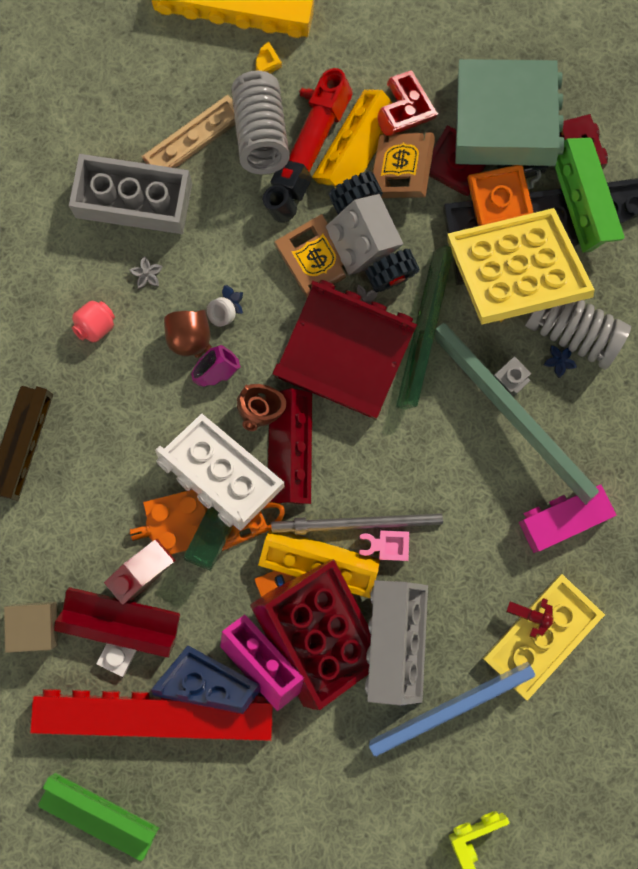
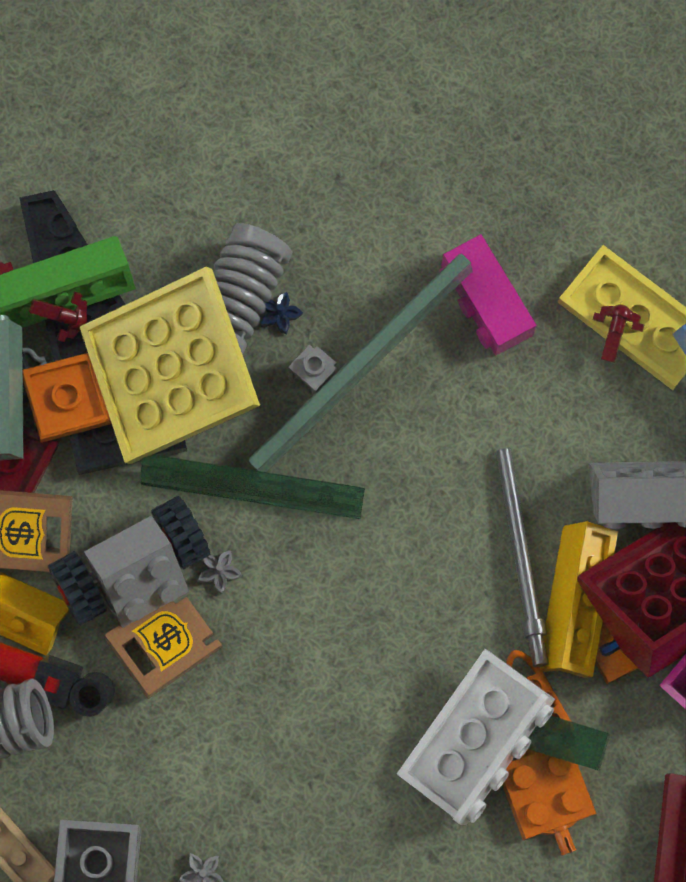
camera: 95 degrees left, 5 degrees down
(139, 572) = (620, 830): slope -> none
(187, 332) = (290, 802): copper helmet -> none
(215, 366) = (332, 761): magenta rock -> none
(221, 311) = (252, 762): white tile -> none
(234, 297) = (236, 751): dark blue plant -> none
(259, 410) = (384, 692): copper helmet -> none
(292, 448) = (424, 651): dark red panel -> none
(345, 349) = (293, 590): dark red panel -> none
(390, 545) = (546, 511): bright pink plate -> none
(561, 205) = (74, 318): none -> dark red piece

